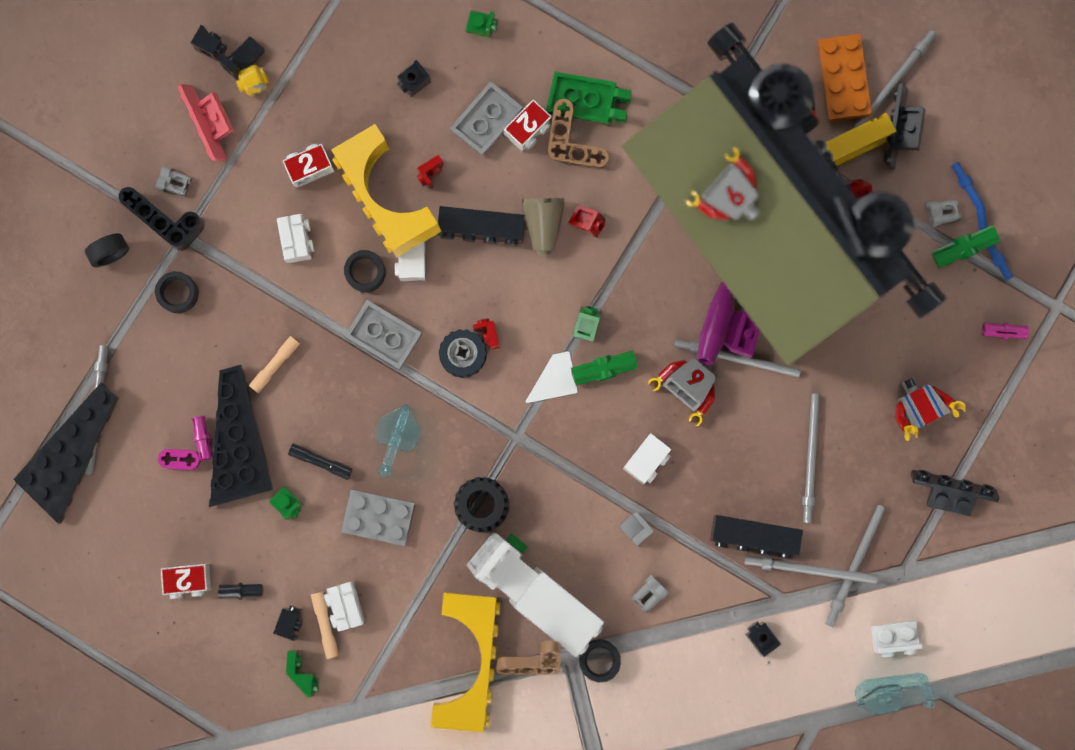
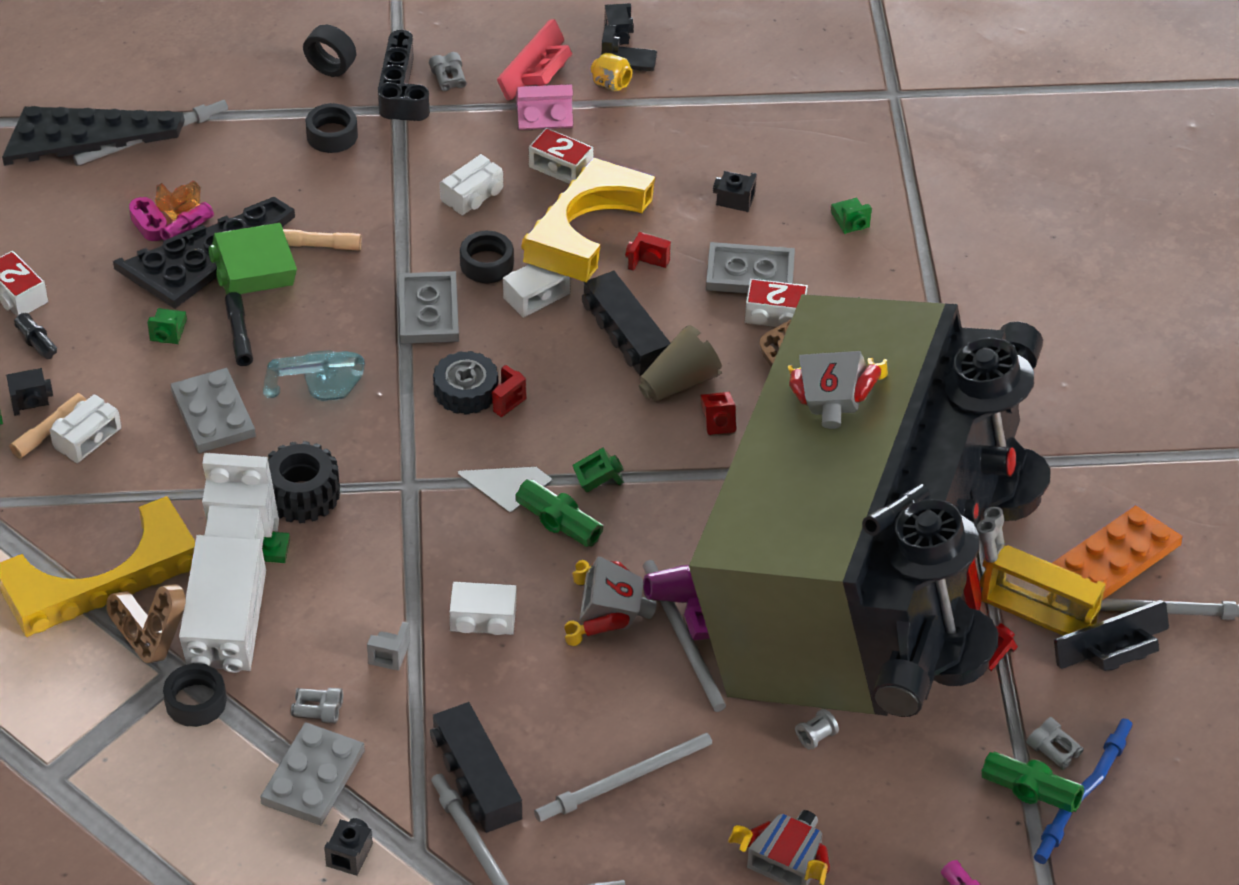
camera: 55 degrees right, 35 degrees down
(179, 432) = (181, 200): none -> clear orange bracket
(255, 145) = (544, 107): none -> bright pink bracket
(273, 421) = (253, 259): none -> bright green brick
(696, 626) = (312, 773): none -> light grey plate
(855, 338) = (817, 729): none -> light grey bush

